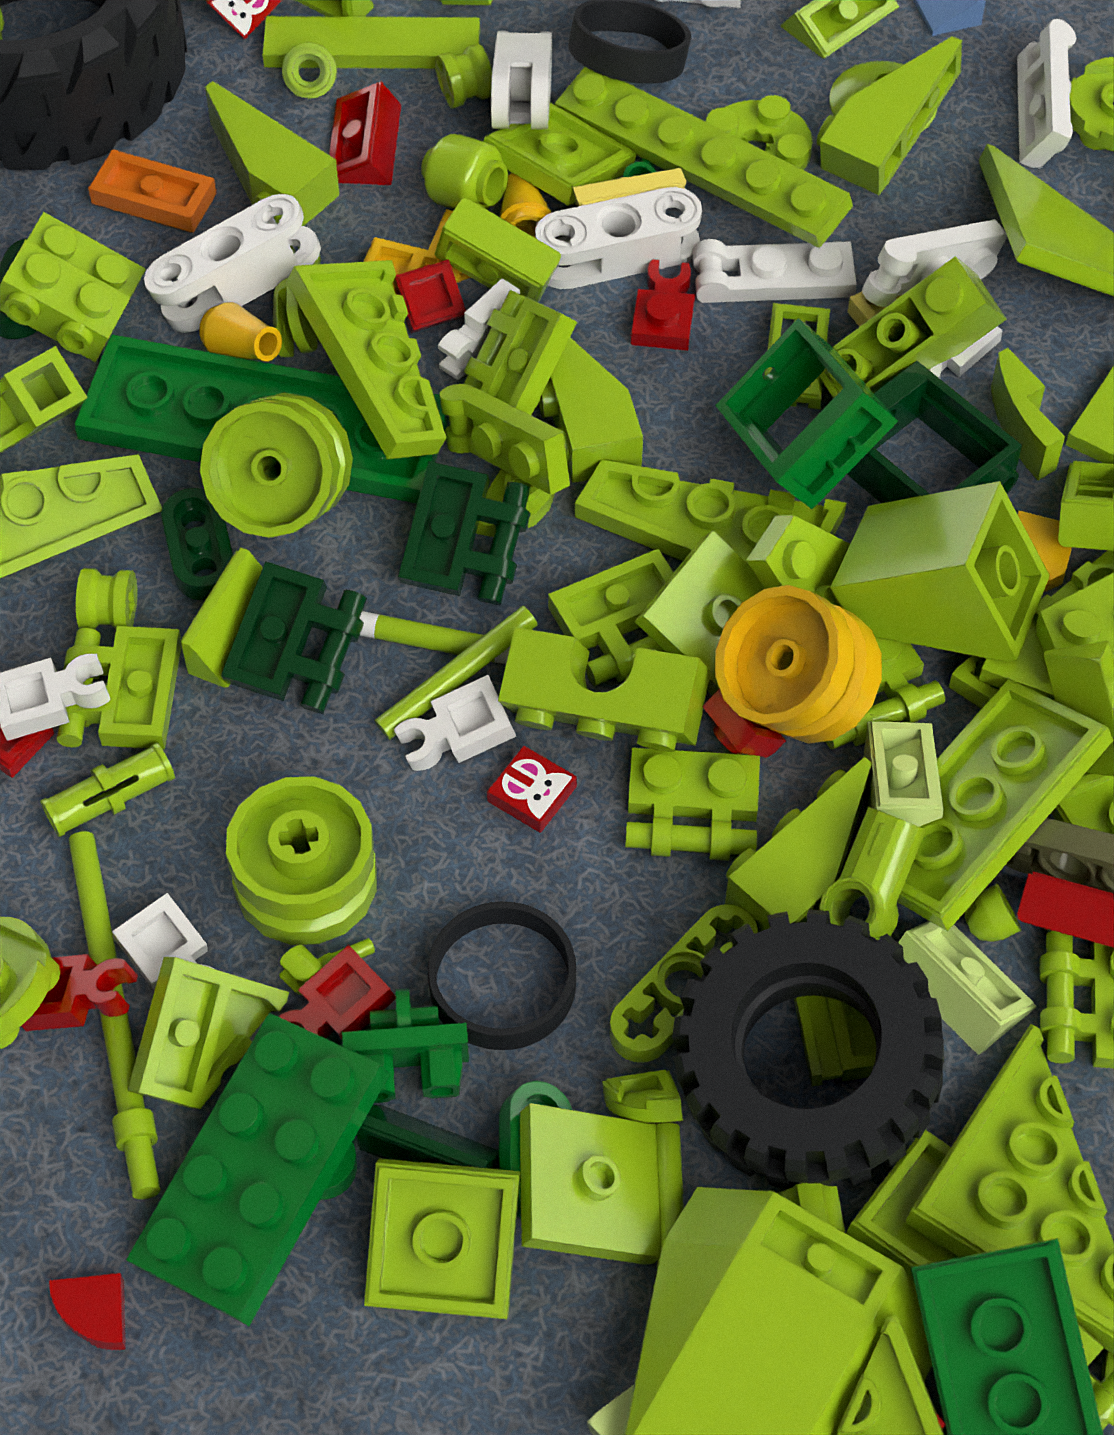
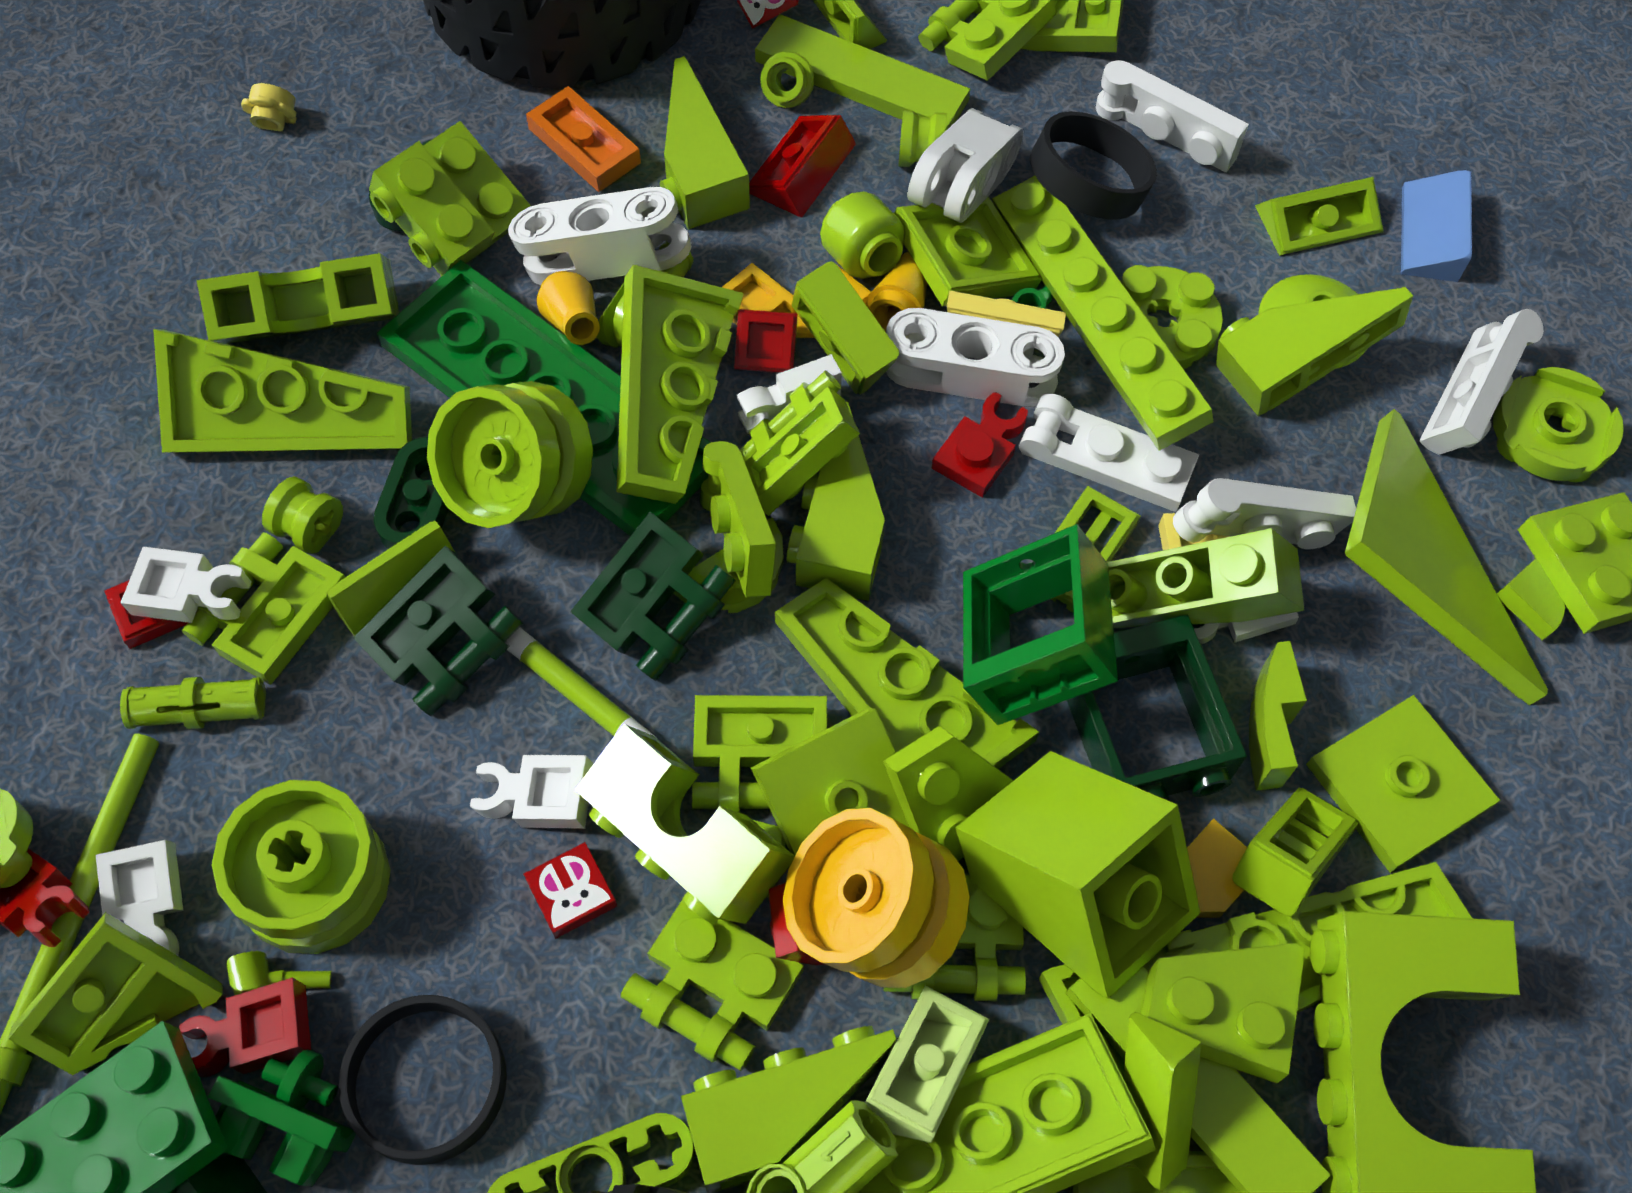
camera: 25 degrees right, 5 degrees up
(455, 671) = (566, 734): lime bar -> none

